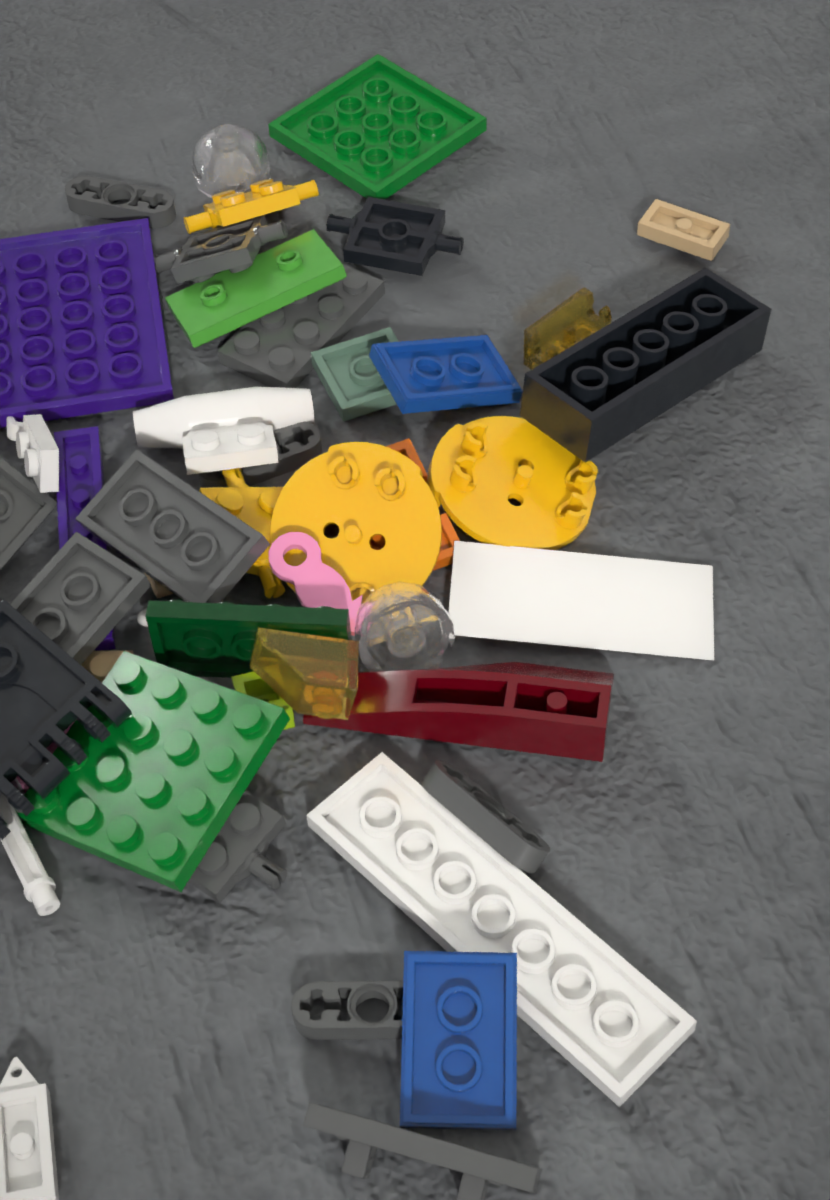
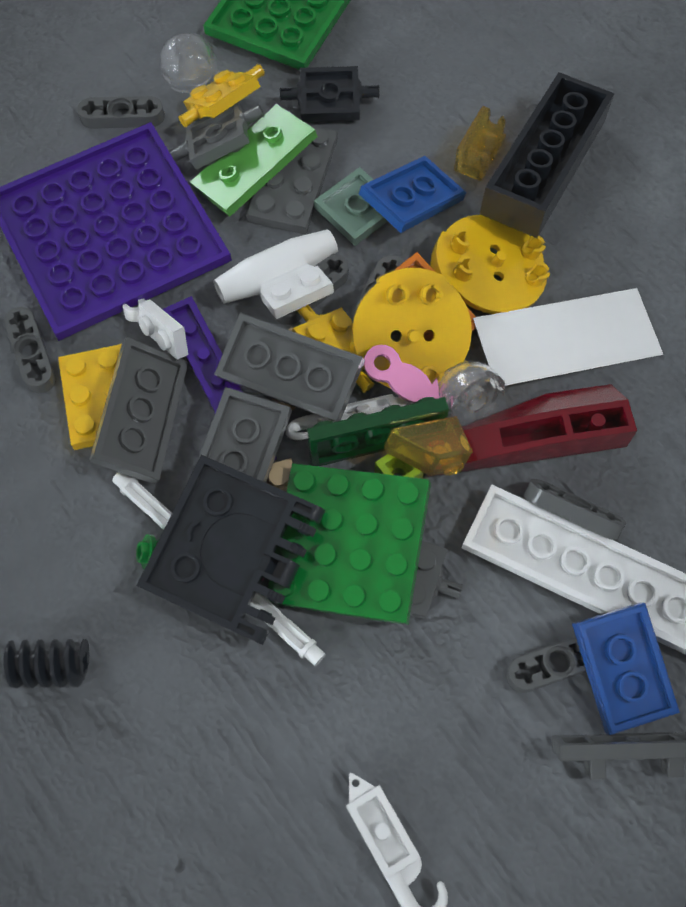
camera: 20 degrees left, 15 degrees up
(683, 229) = (521, 42): tan plate -> none

